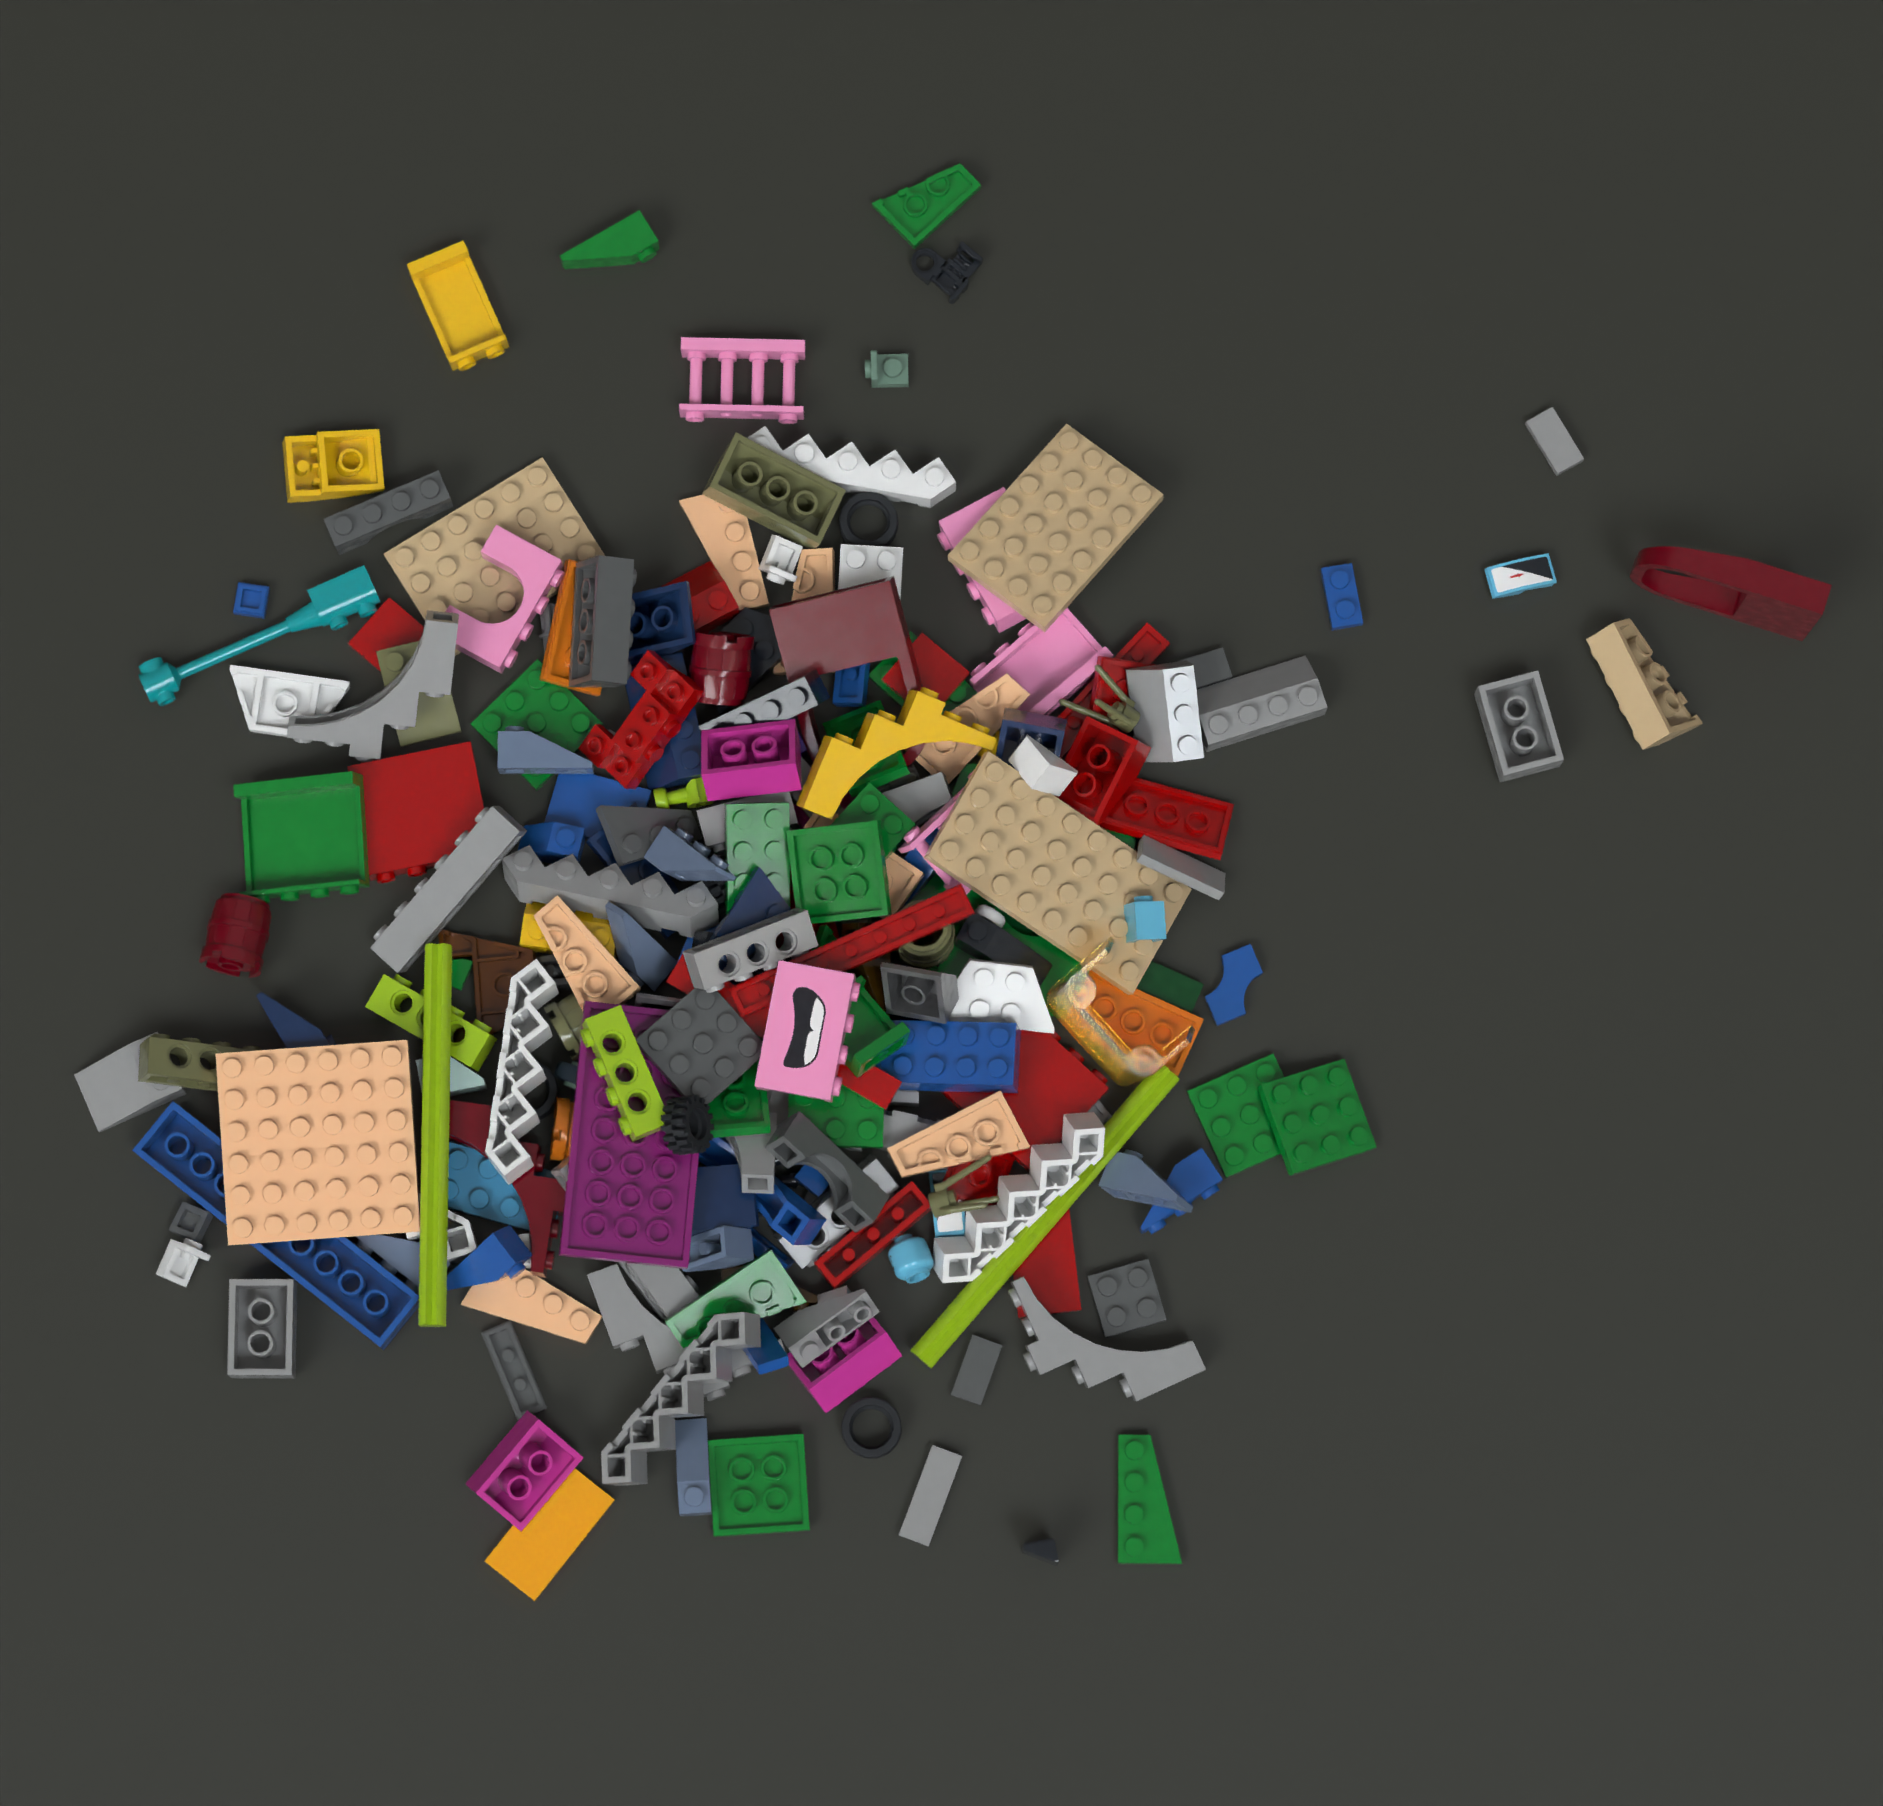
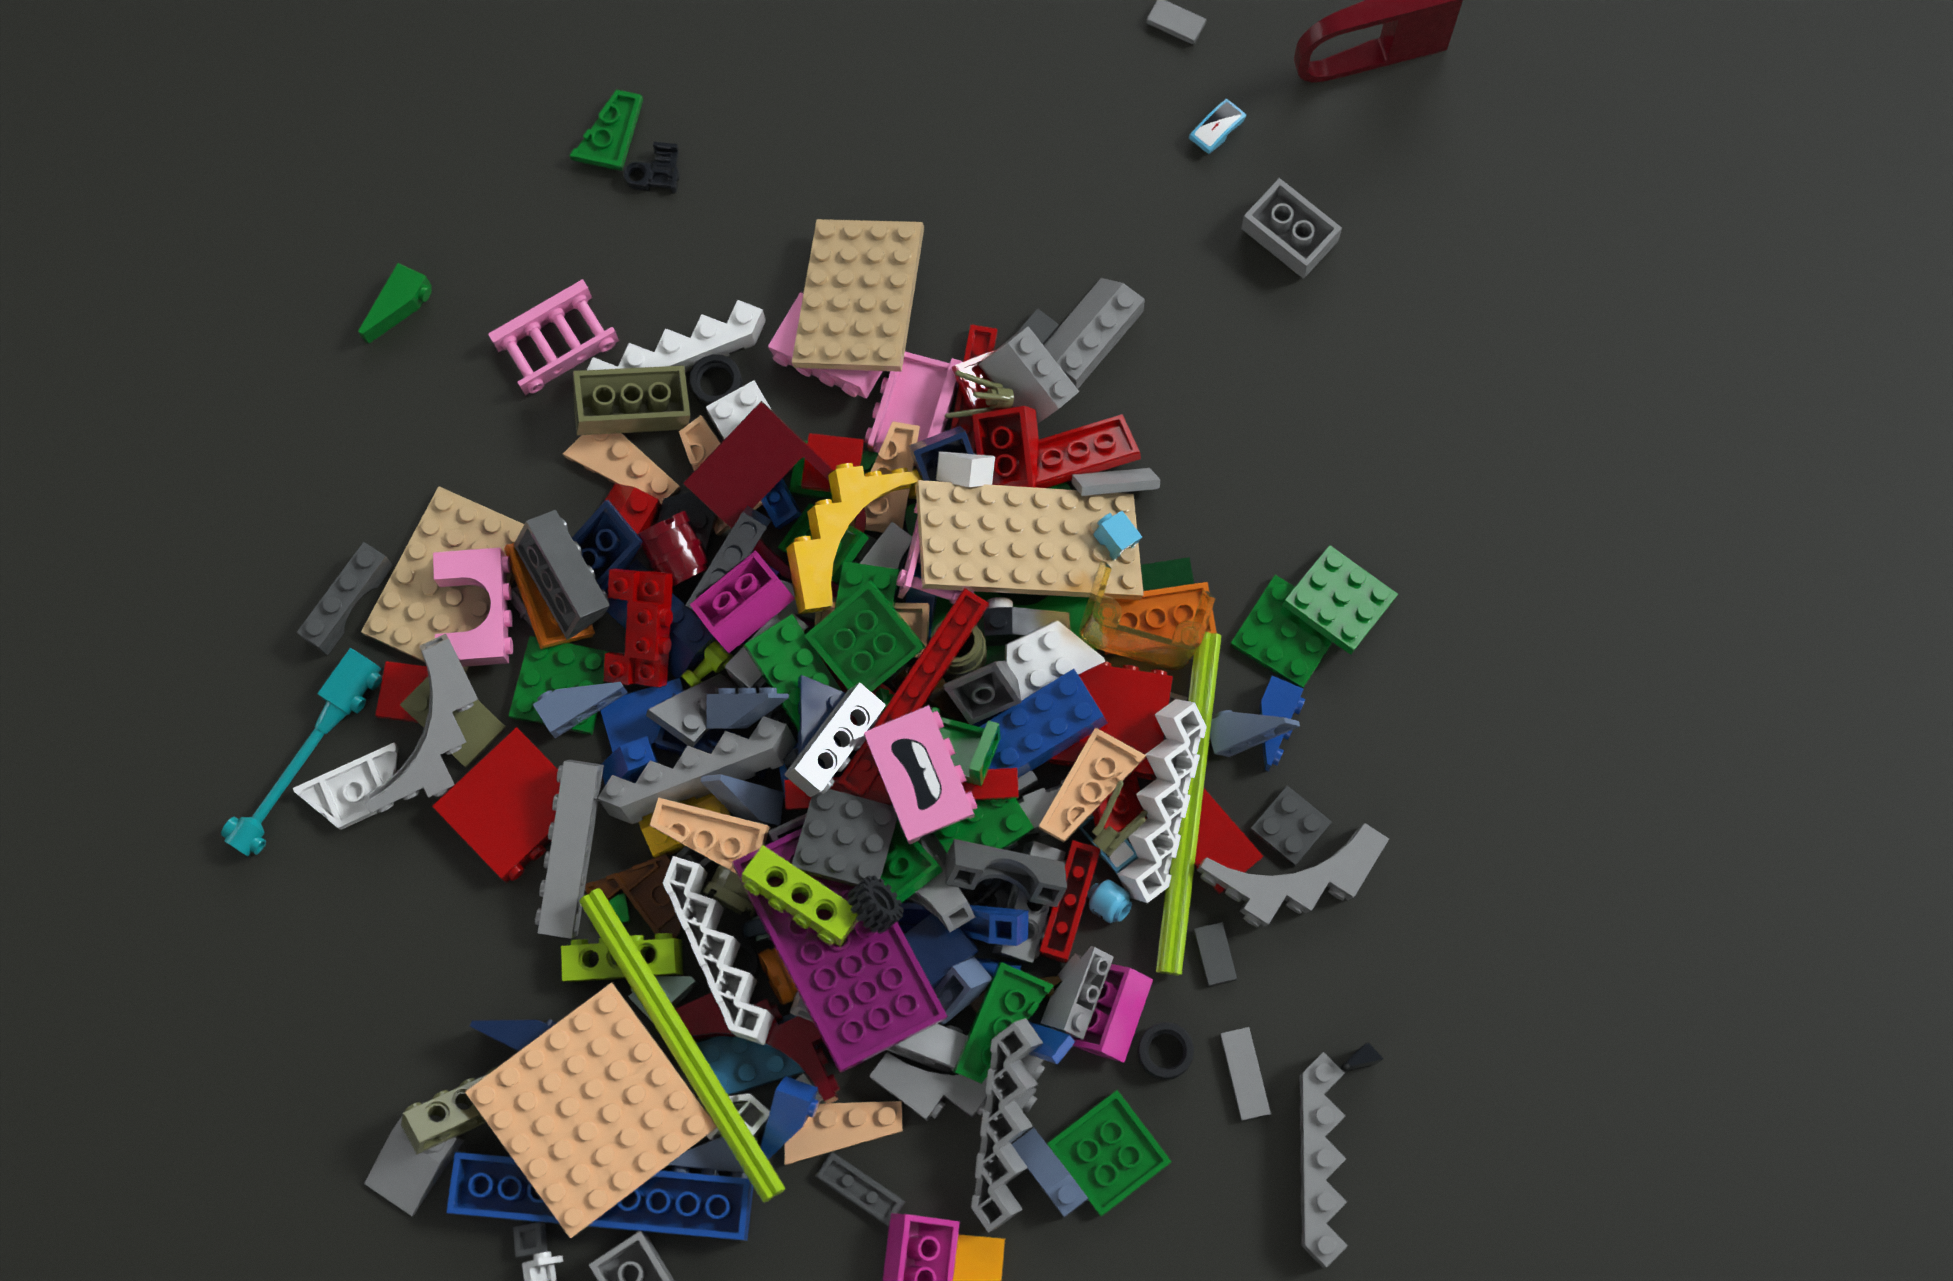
camera: 25 degrees left, 5 degrees down
(237, 935) = (426, 990): dark red piece -> none
(251, 600) = (280, 730): blue tile -> none
(304, 836) = (431, 881): green panel -> none
(332, 465) = (280, 591): yellow slope -> none
(458, 306) = (303, 417): yellow panel -> none
(780, 560) = (668, 448): white bracket -> none
(812, 1180) = (995, 889): blue tile -> none
(887, 370) = (658, 266): sand green bracket -> none
(944, 1615) = (1319, 1161): none -> light grey brick
(1143, 1511) = (1414, 980): green wing -> none
(1239, 970) = (1208, 532): blue tile -> none
(1341, 596) = (1099, 220): blue plate -> none
(1640, 685) = (1355, 147): tan wedge -> none

